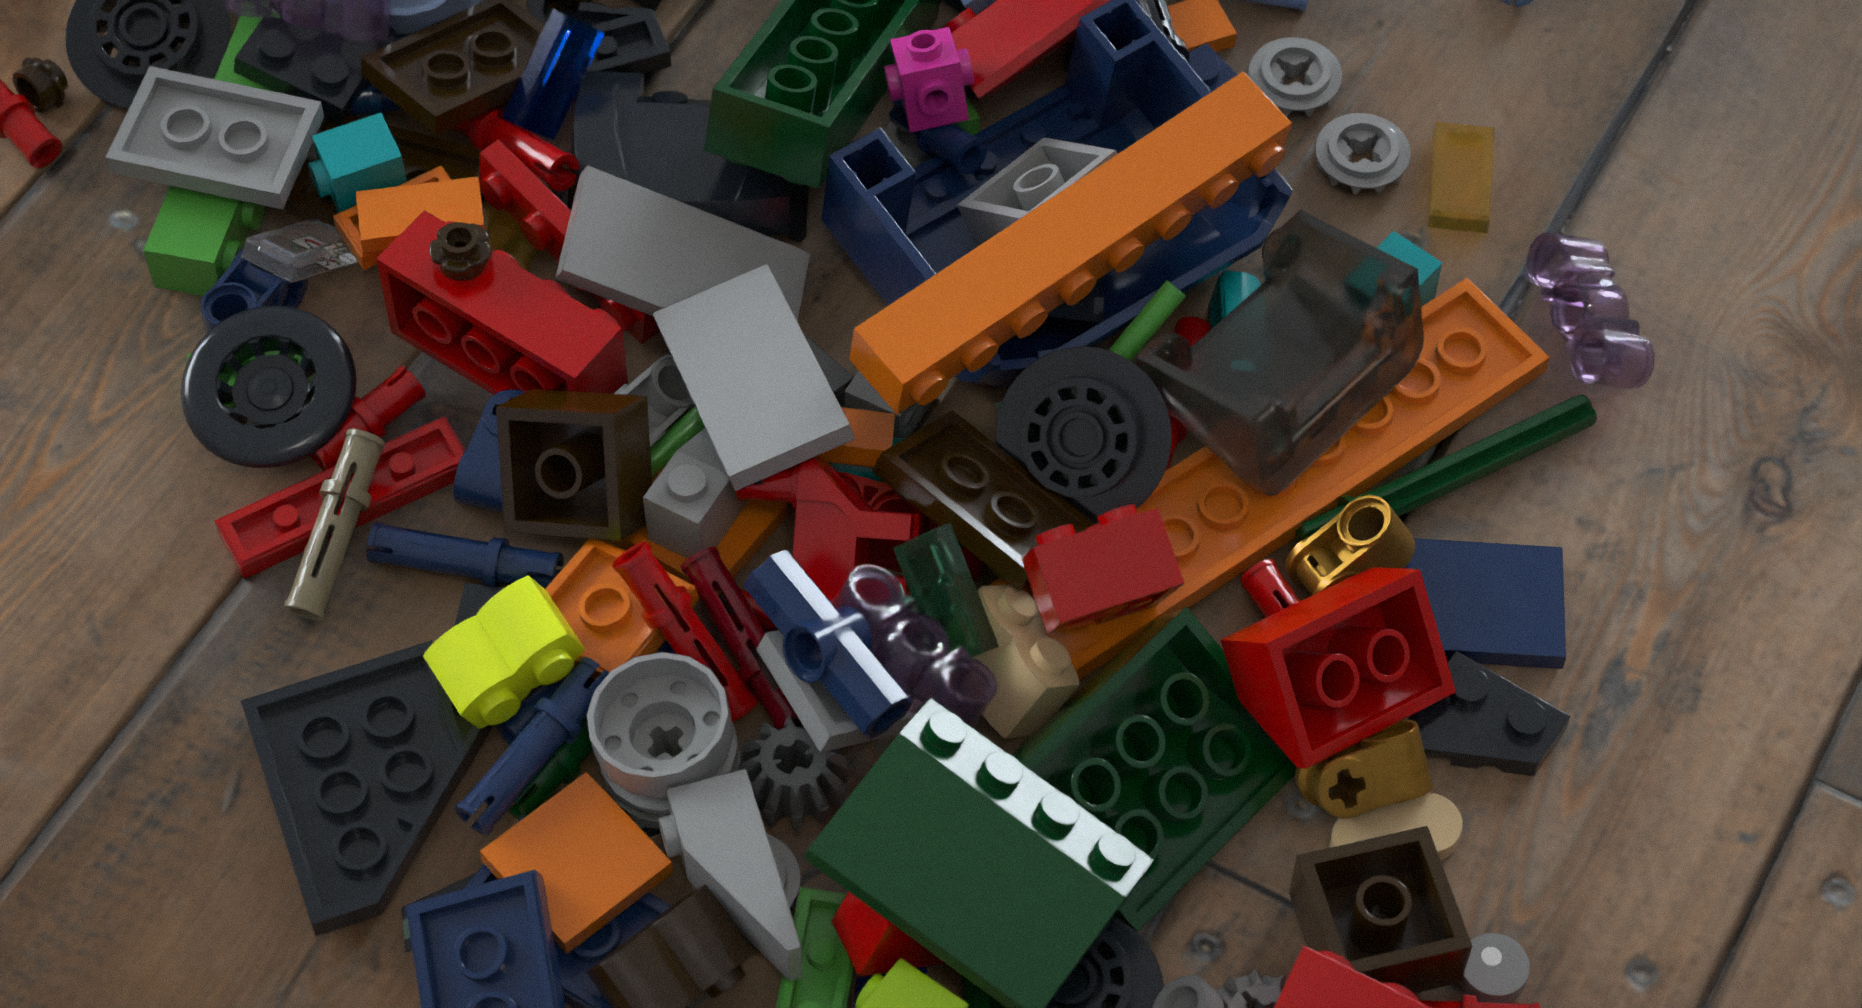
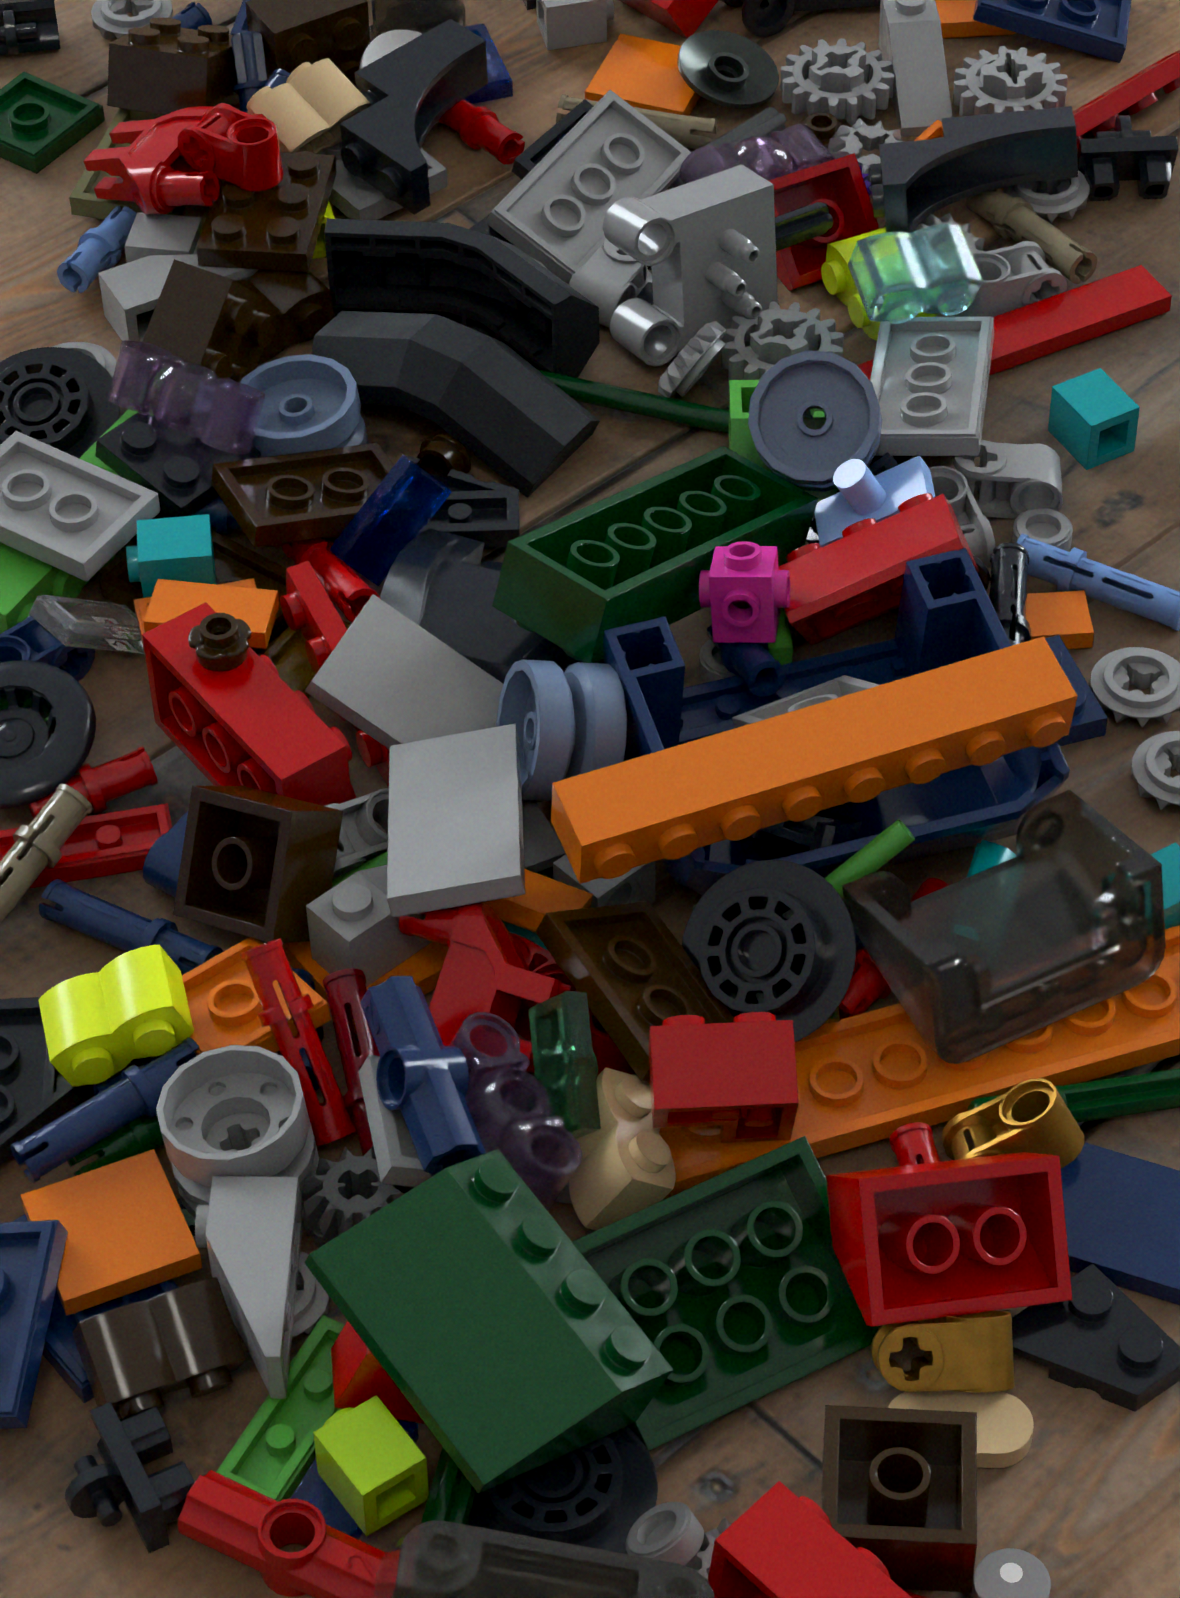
camera: 20 degrees right, 10 degrees down
(818, 252) = (563, 721): none -> sand blue wheel

